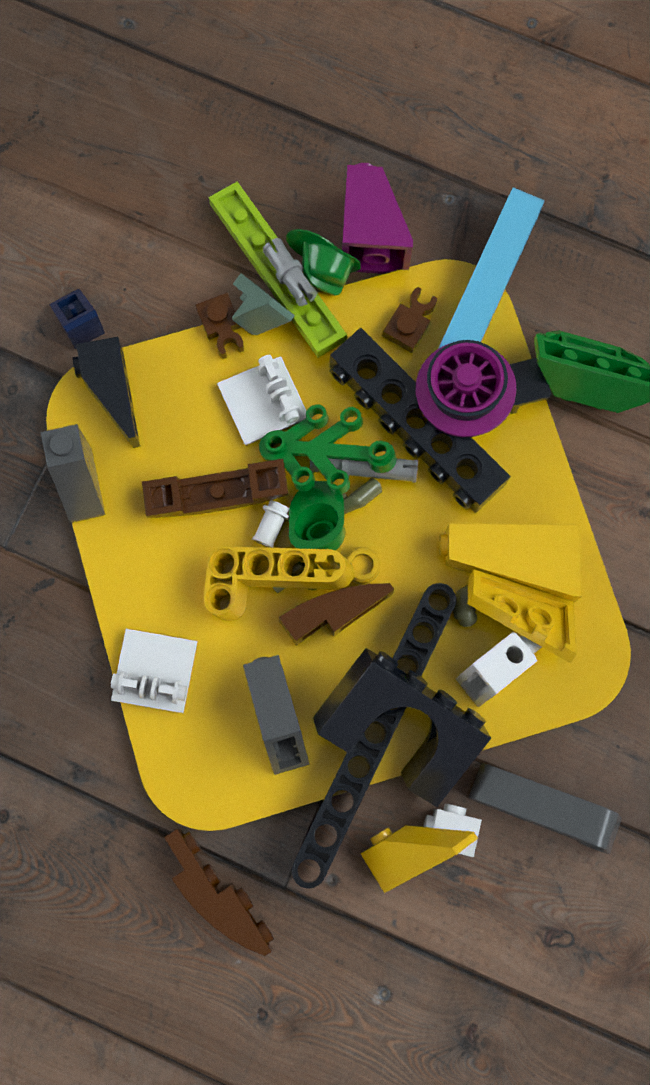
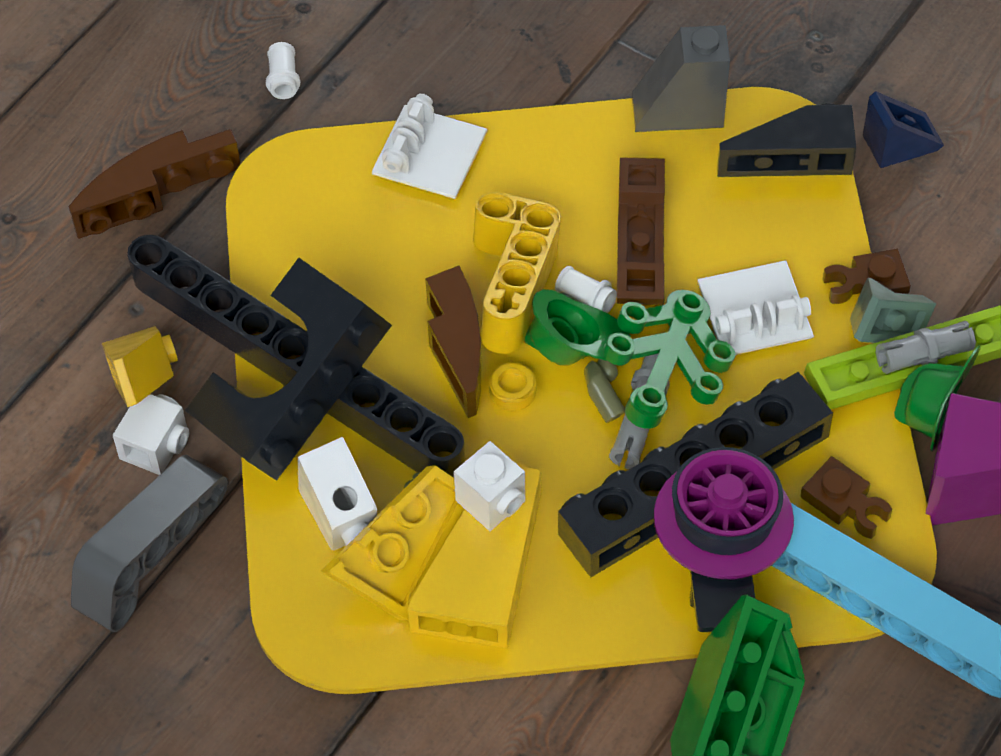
camera: 105 degrees right, 20 degrees down
(82, 814) = (283, 79): none -> white pin
(276, 714) = (349, 248): dark grey slope -> none
(486, 548) = (490, 486): none -> white brick

